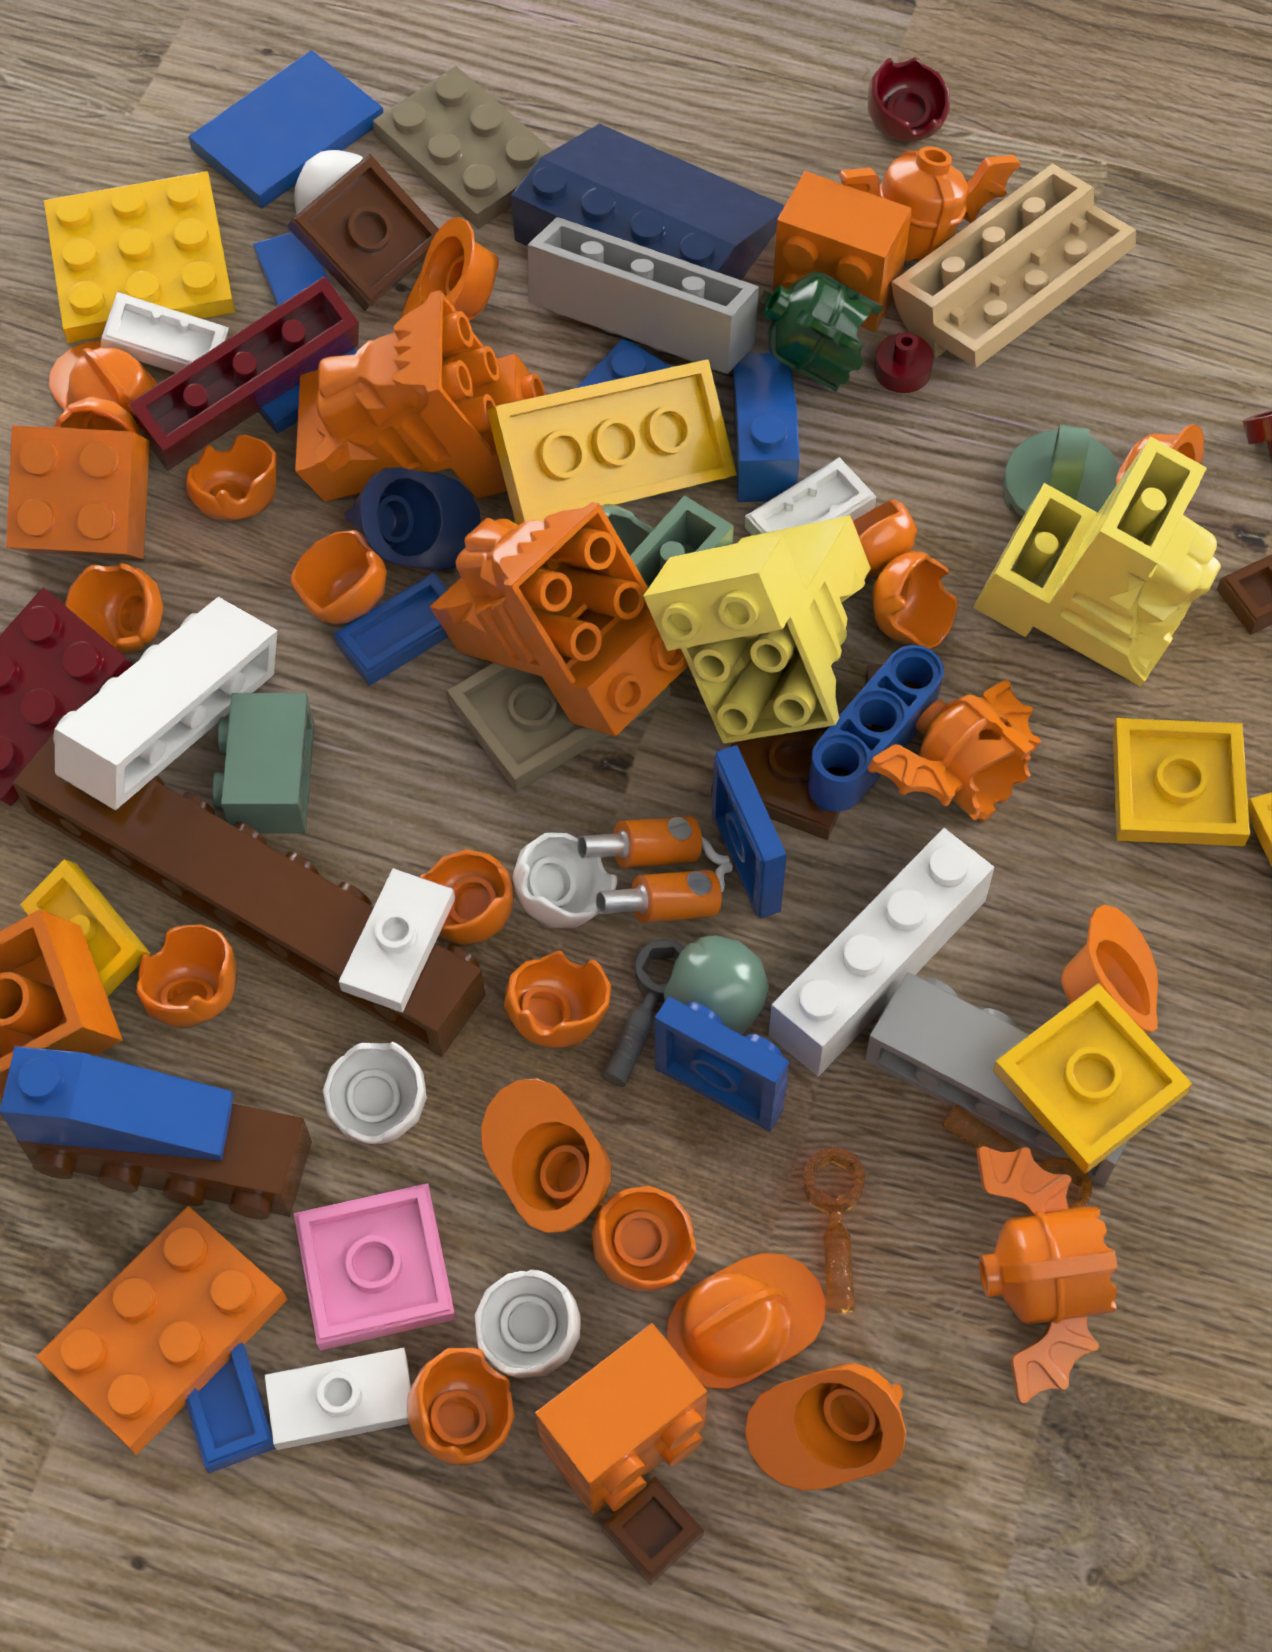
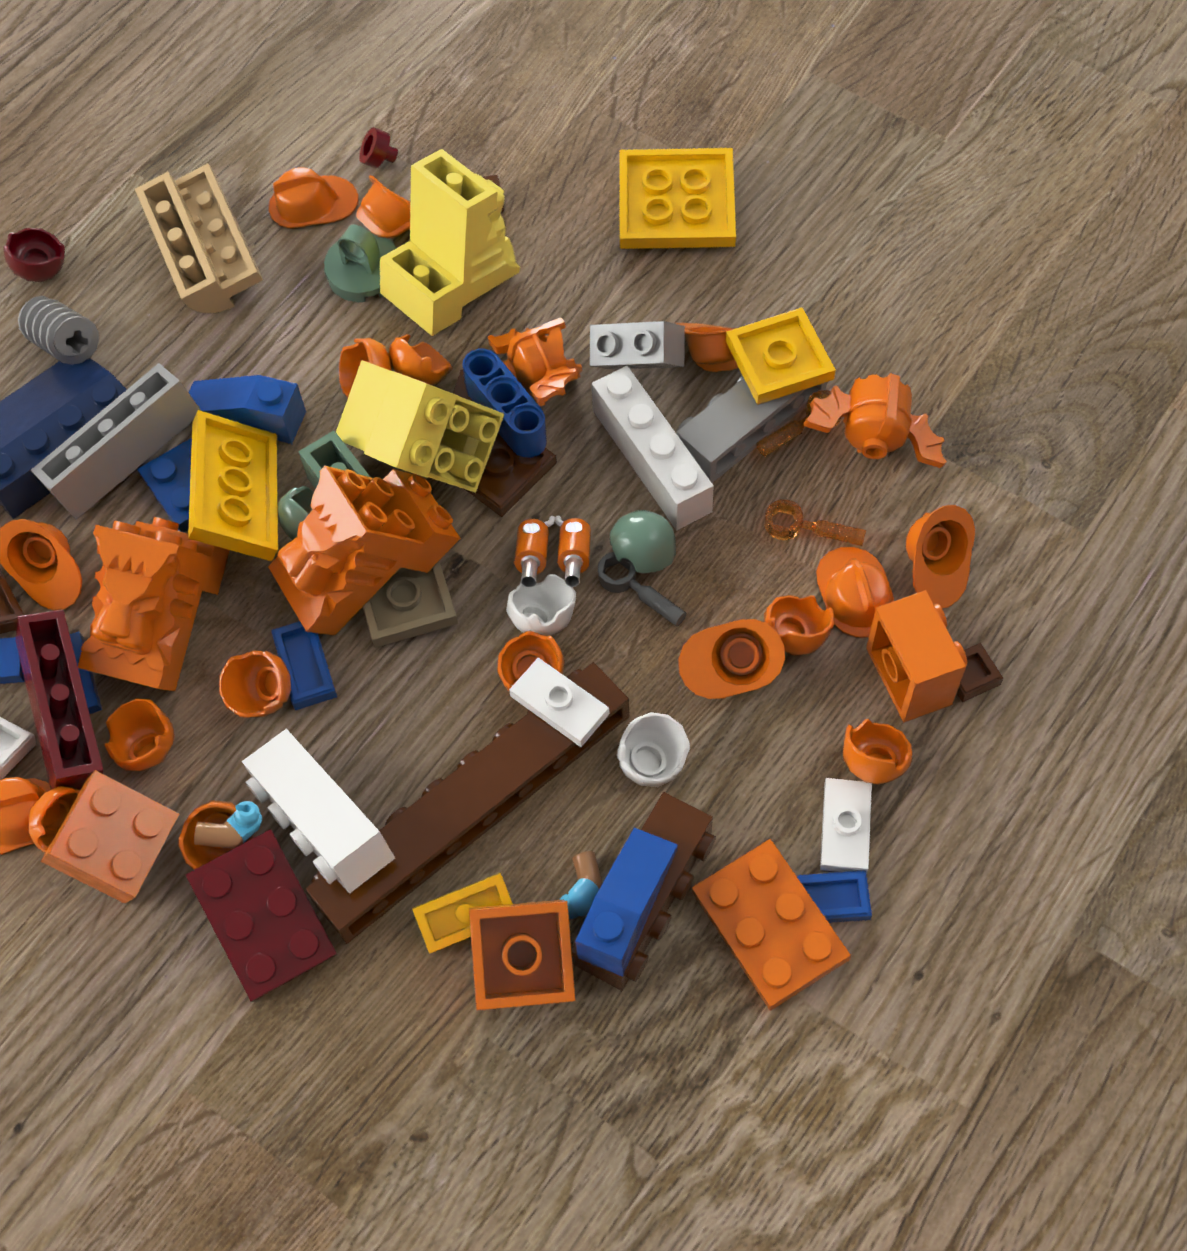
camera: 70 degrees left, 0 degrees up
(113, 618) = (233, 831): none -> arm
(186, 1064) = (585, 889): none -> arm
(189, 977) = (528, 848): orange hair -> none
(266, 762) = (380, 765): sand green brick -> none
(374, 1267) = (763, 787): bright pink tile -> none
(415, 517) = (228, 627): dark blue piece -> none
(527, 1324) = (835, 698): white hair -> none
(557, 1000) = (623, 628): orange hair -> none
(720, 1063) = (704, 544): blue plate -> none
(748, 832) = (552, 487): blue tile -> none
(778, 164) = (58, 330): none -> light grey piece
(817, 327) = (199, 346): dark green helmet -> none
(821, 496) = (321, 397): white plate -> none
(845, 236) = (143, 318): orange brick -> none
(903, 363) = (233, 321): dark red tile -> none
(934, 192) = (127, 264): orange helmet -> none
(1040, 873) = (637, 345): none -> light grey brick
(1153, 380) = (310, 199): none -> orange piece
(1180, 782) = (592, 270): yellow plate -> none

